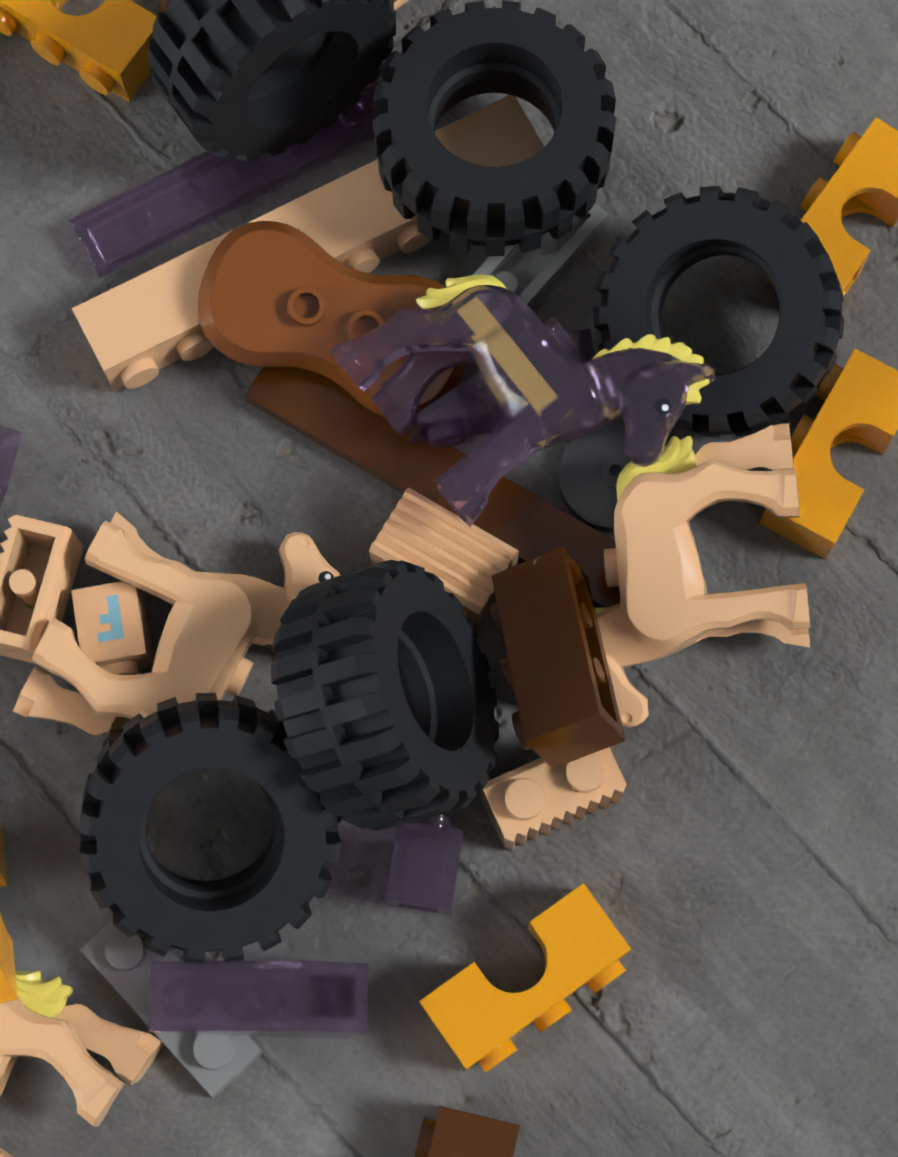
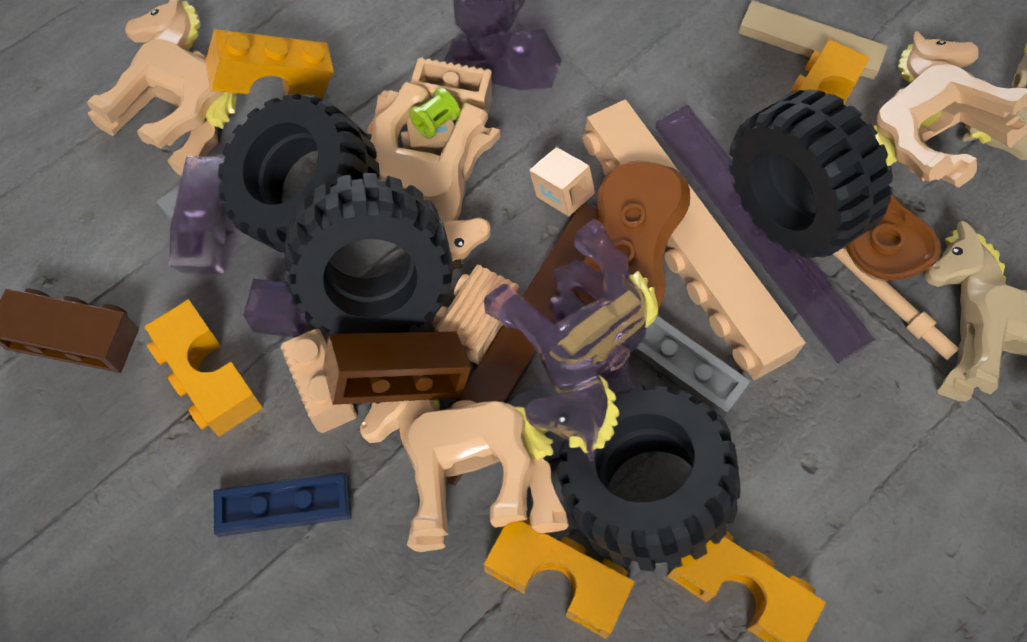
camera: 85 degrees right, 10 degrees down
(96, 606) = (434, 113): none -> lime bush
(213, 421) = (562, 181): none -> light nougat brick
(494, 54) = (798, 275): black tyre -> none
(735, 845) = (281, 504): none -> dark blue tile

